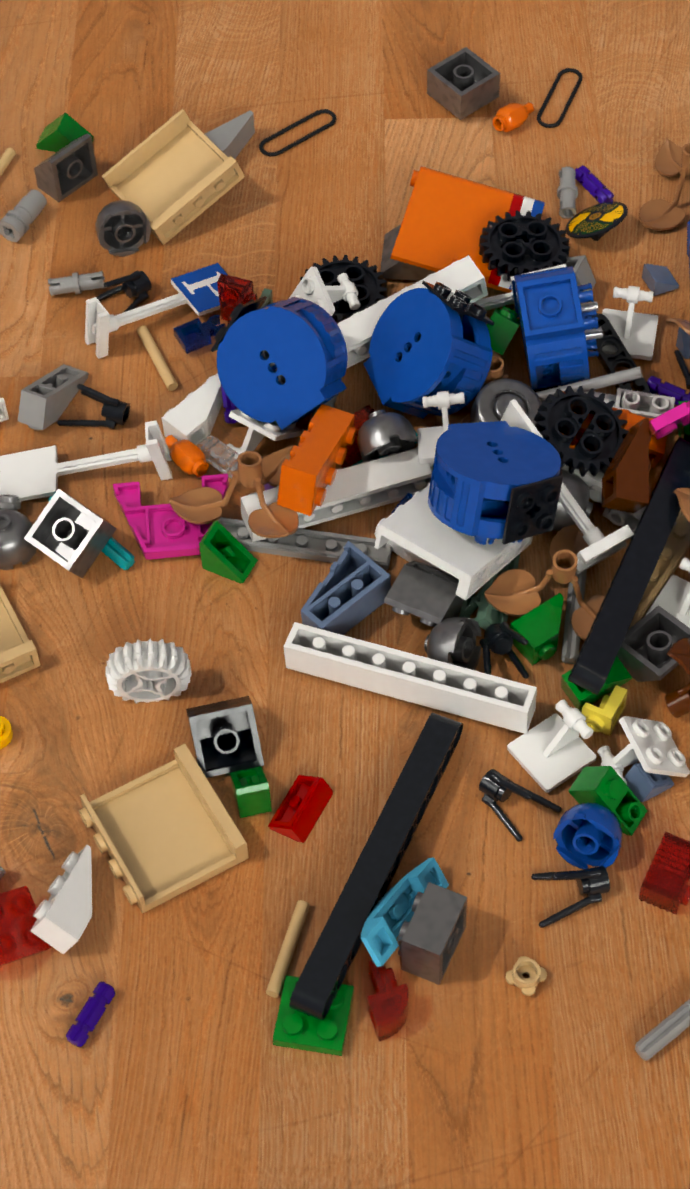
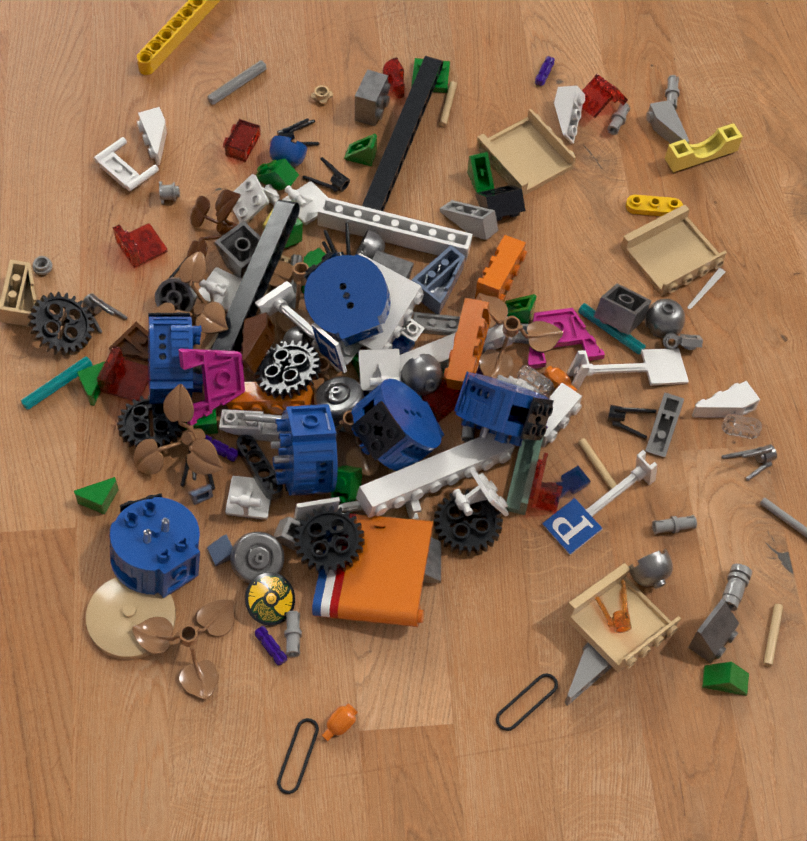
camera: 170 degrees right, 5 degrees up
(133, 285) = (628, 523): black plant -> none
(148, 671) = (552, 224): white gear -> none
(175, 169) = (621, 618): none -> clear orange plant
(246, 605) = (502, 268): none -> orange wedge
(282, 707) = (471, 218): none -> light grey slope
(301, 807) = (451, 171): red slope -> none
(395, 907) = (400, 89): medium azure slope -> none
(455, 842) = (363, 150): none -> green slope
(463, 83) = (385, 746): flat silver brick -> none
(616, 254) = (255, 555): none -> flat silver wheel

